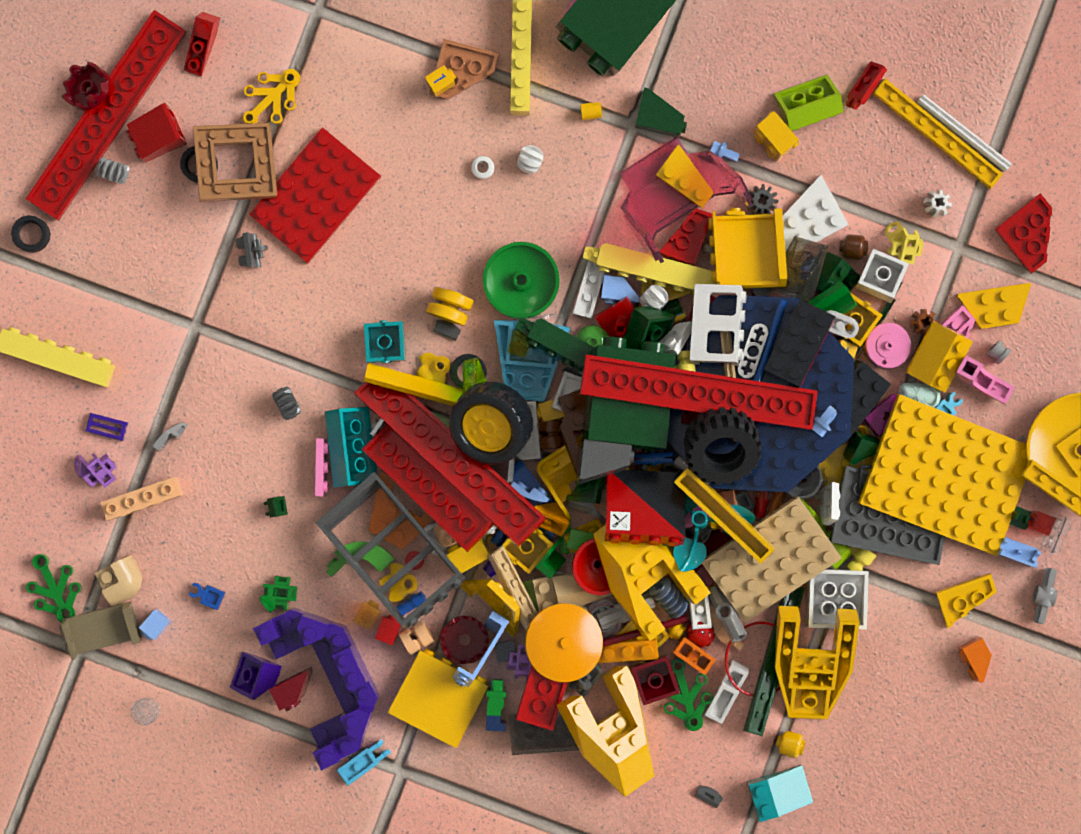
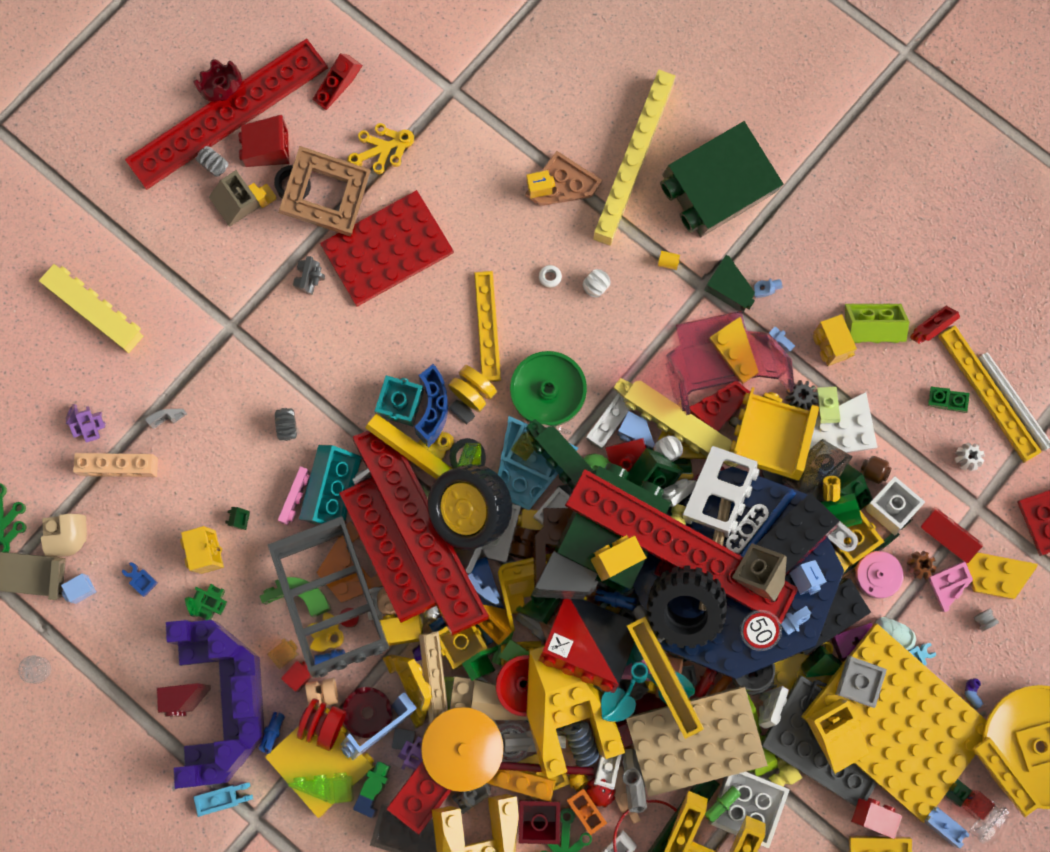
camera: 20 degrees right, 10 degrees down
(15, 233) = (111, 179): black tyre -> none
(122, 430) = (125, 397): dark purple tile -> none
(148, 200) = (233, 198): none -> dark tan slope
(175, 185) = (263, 194): none -> yellow bracket
(254, 675) = (152, 672): dark purple slope -> none
(255, 549) = (201, 551): none -> yellow brick
(385, 688) = (271, 732): none -> blue pin
(424, 340) = (436, 413): none -> blue brick
(428, 666) = (320, 724): none -> red wheel
(440, 238) = (487, 326): none -> yellow tile
(458, 720) = (329, 790): none -> clear neon green slope
(645, 426) = (621, 556): none -> yellow brick
(697, 104) = (770, 287): none -> light blue piece
(779, 389) = (762, 571): none -> dark tan slope
(789, 200) = (828, 405): none -> yellowish green plate
(796, 441) = (761, 630): none -> piece
(813, 606) = (722, 804): none -> bright green axle
(818, 283) = (831, 488): none -> yellow piece
(823, 378) = (808, 578): none -> light blue brick
(896, 508) = (839, 734): none -> yellow slope
(901, 153) = (948, 400): none -> green slope
(902, 238) = (926, 476): light yellow piece -> none
(902, 453) = (861, 681): none -> light grey tile
(939, 356) = (926, 602): yellow slope -> none
(943, 283) = (951, 535): none -> red panel
(954, 567) = (877, 818): none -> brick
(978, 378) = (955, 633): bright pink arch -> none
(1005, 424) = (971, 692): none -> arm

